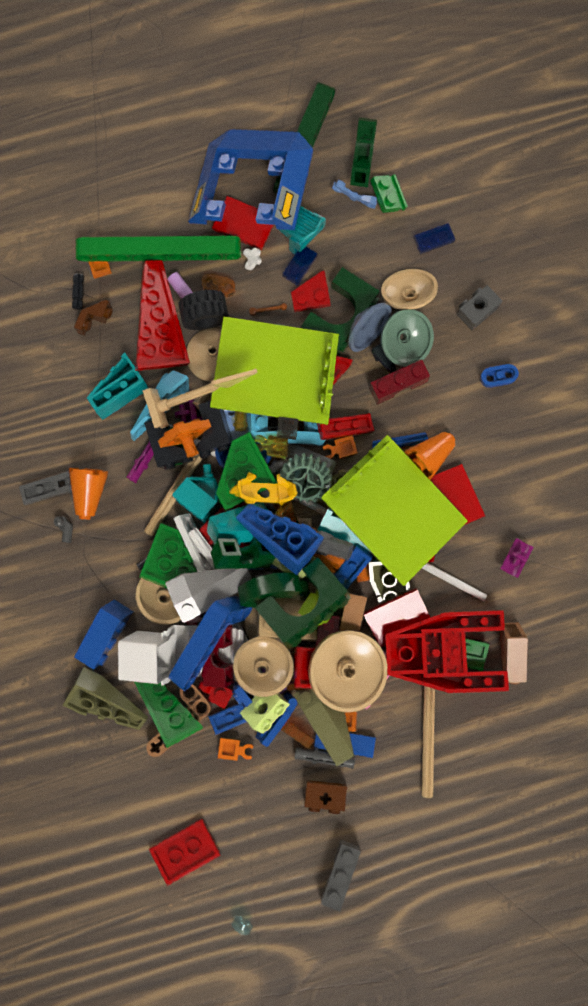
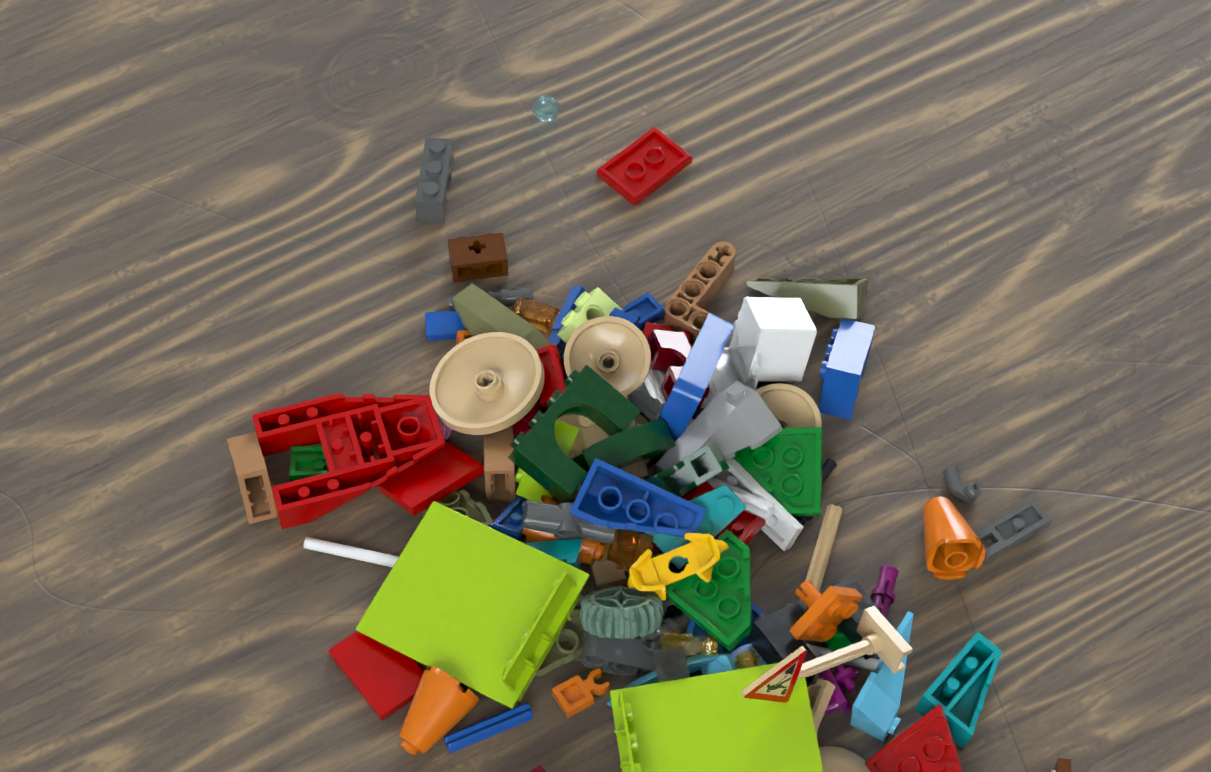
camera: 160 degrees right, 25 degrees down
(168, 714) = (713, 282): green wing -> none
(199, 495) = (778, 559): teal piece -> none
(231, 748) = (620, 280): orange plate -> none
(346, 426) = (577, 723): red tile -> none
(428, 742) = (349, 341): tan axle -> none
(516, 558) = (268, 598): magenta hips -> none

